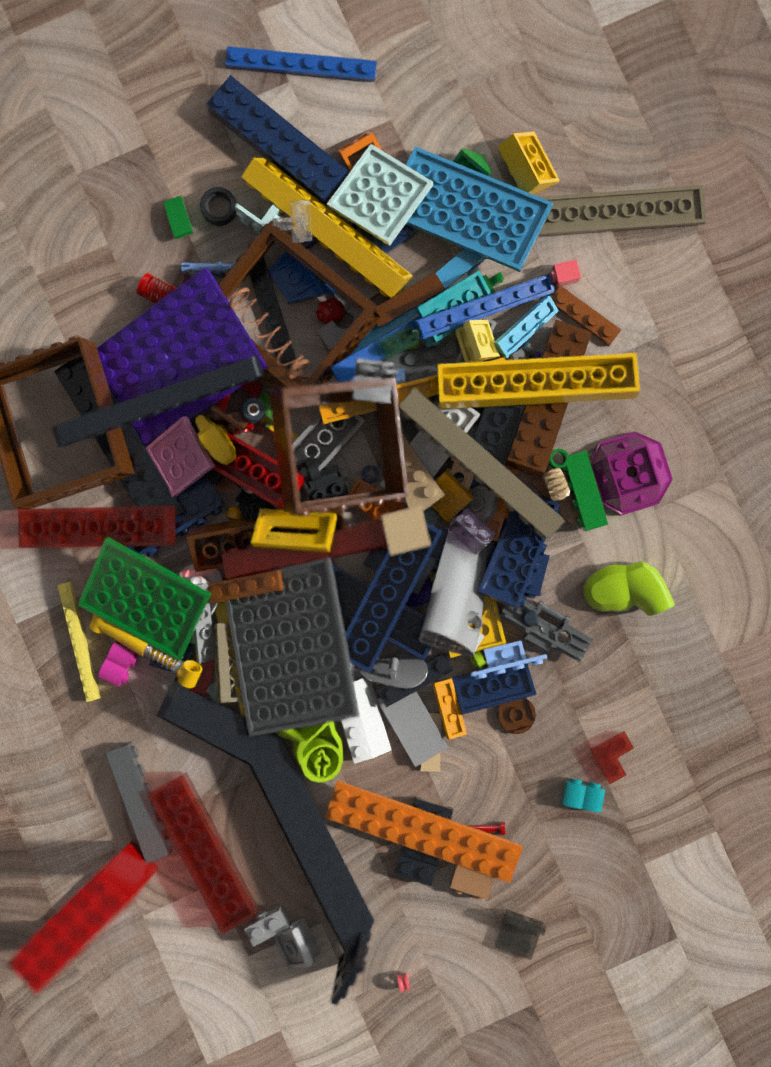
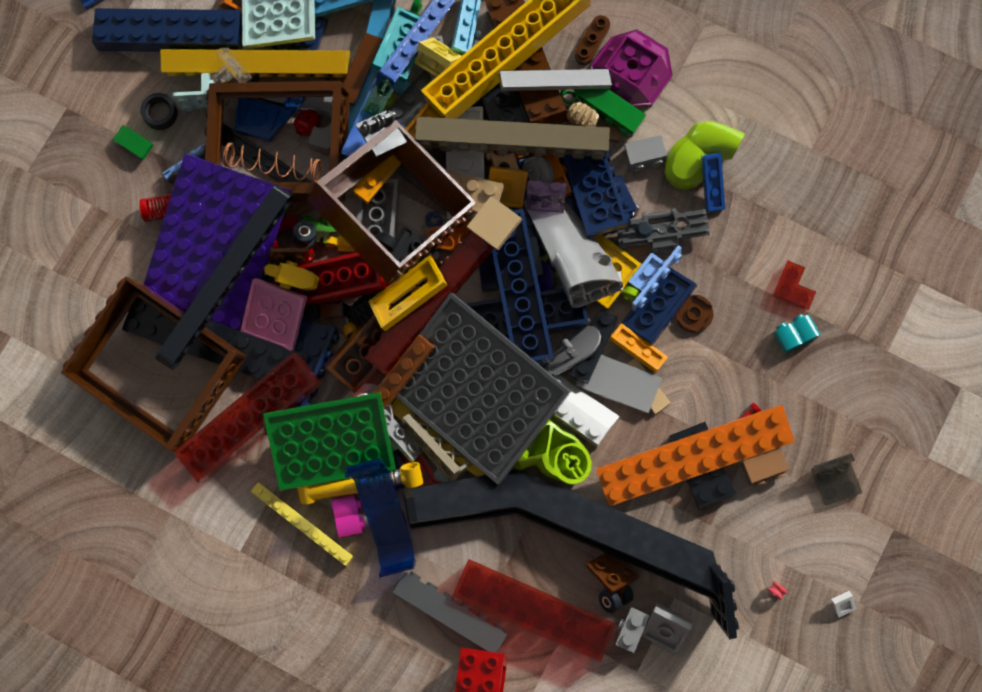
camera: 25 degrees left, 10 degrees down
(143, 693) = (384, 516): none -> clear blue windscreen
(284, 876) = (615, 577): none -> reddish brown plate
(445, 1032) = (843, 604): none -> white plate
(555, 439) = (554, 79): none -> tile
(583, 553) = (645, 153): none -> light grey brick
(610, 425) = (589, 46): none -> reddish brown plate
(617, 622) = (713, 182): none -> blue tile

